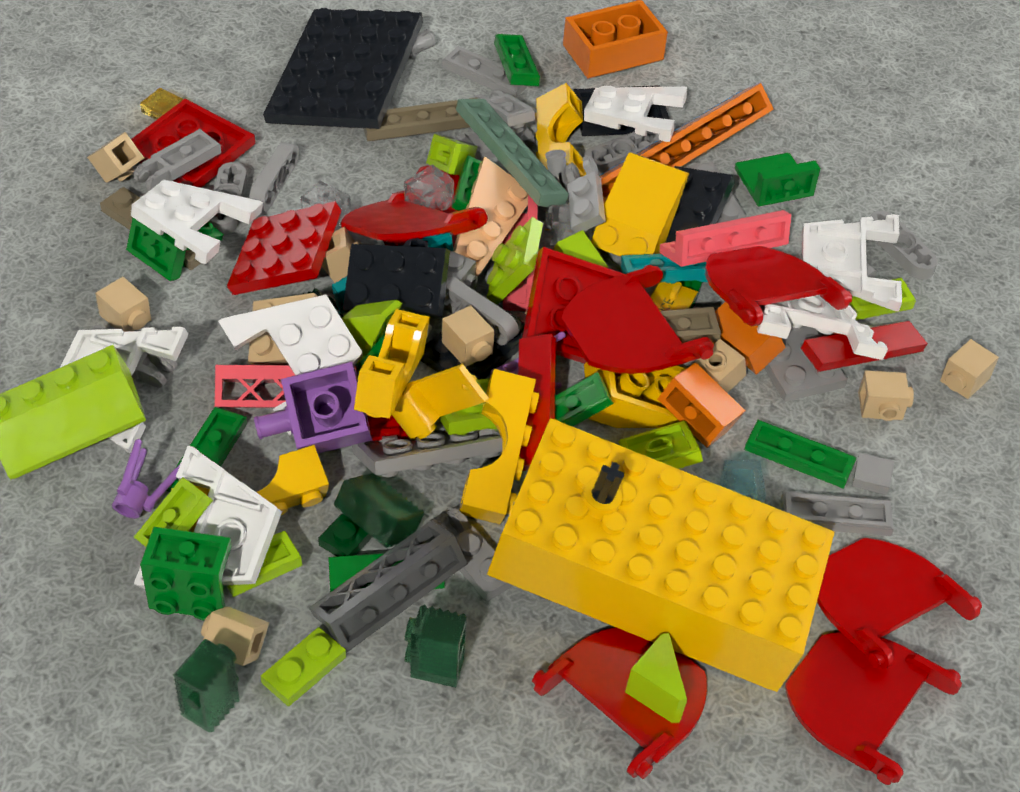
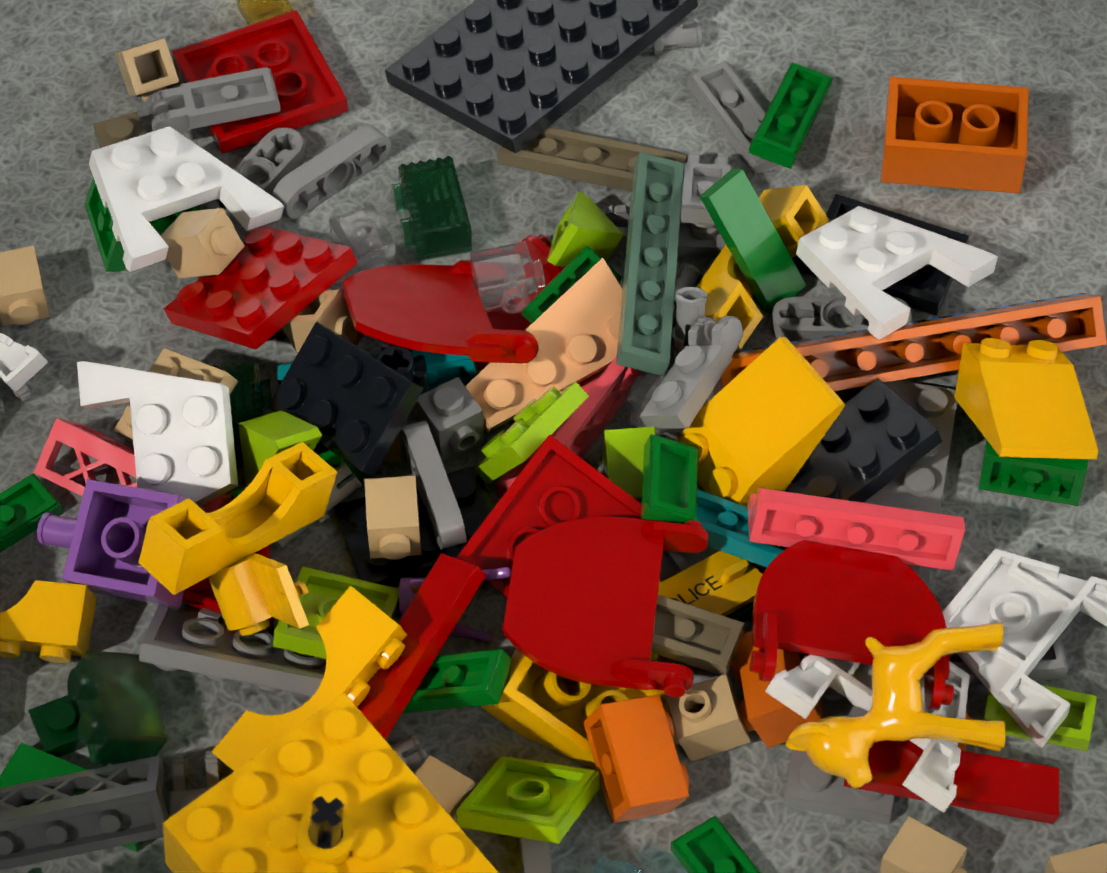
camera: 35 degrees right, 5 degrees up
(236, 235) = (201, 243): none -> tan brick
(352, 173) = (433, 209): none -> clear green brick
(555, 116) = (752, 239): none -> green tile
(615, 252) = (669, 481): none -> green tile
(759, 146) = (1025, 400): none -> yellow slope
(815, 343) = (843, 743): none -> yellow animal

